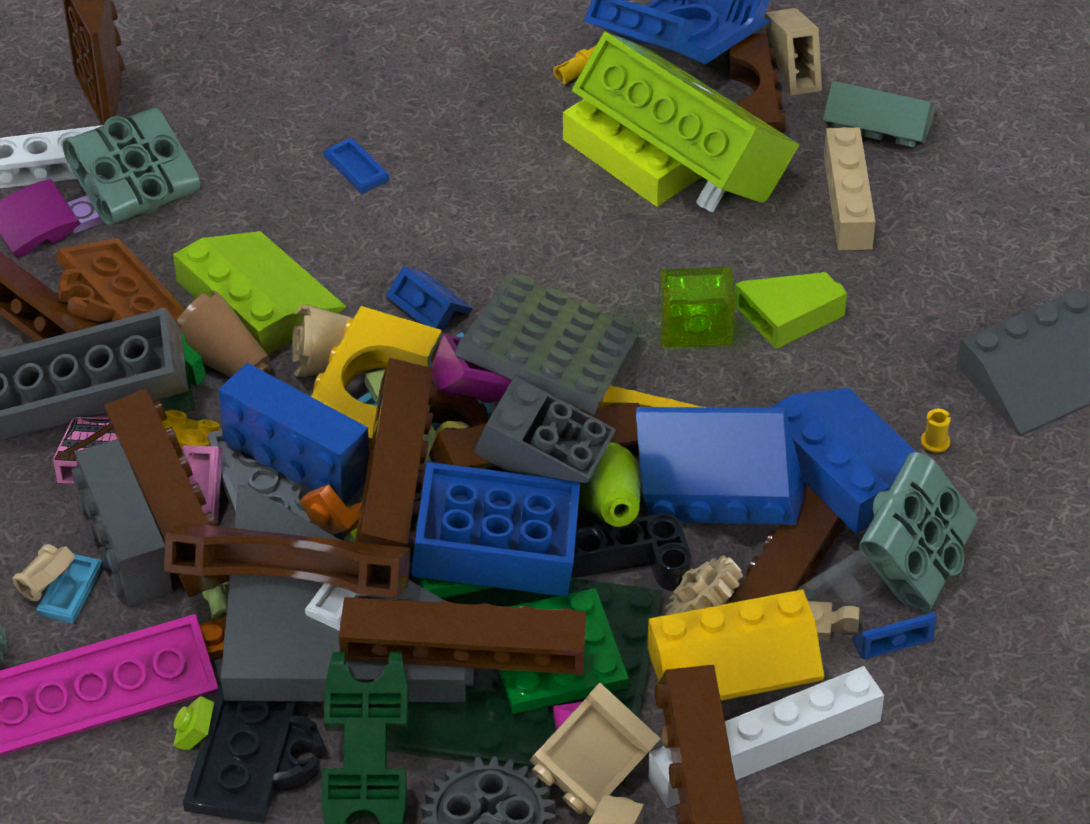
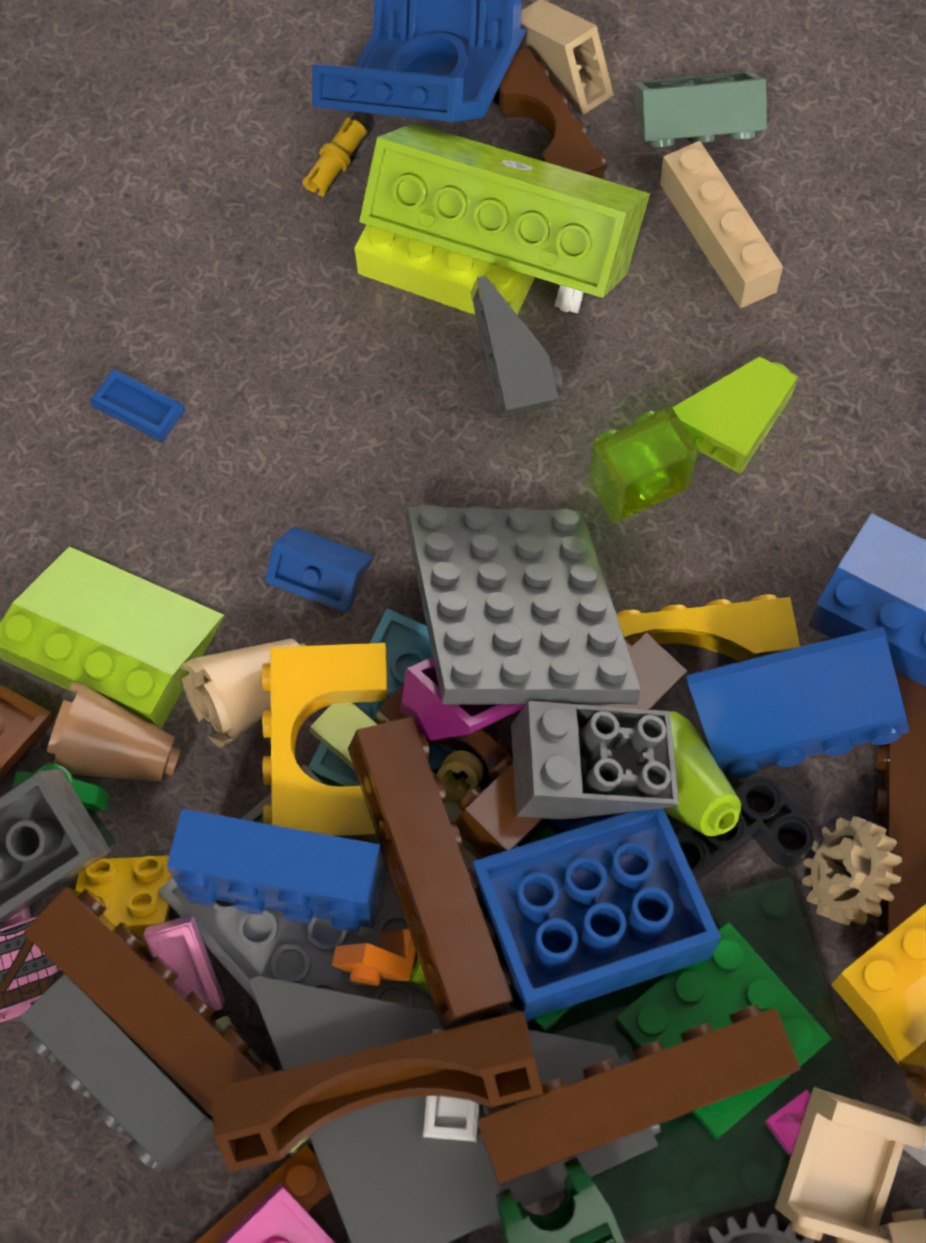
camera: 20 degrees left, 20 degrees up
(43, 570) = (52, 1189): tan piece -> none
(69, 591) = (91, 1180): medium azure tile -> none
(637, 224) = (514, 358): none -> dark grey slope

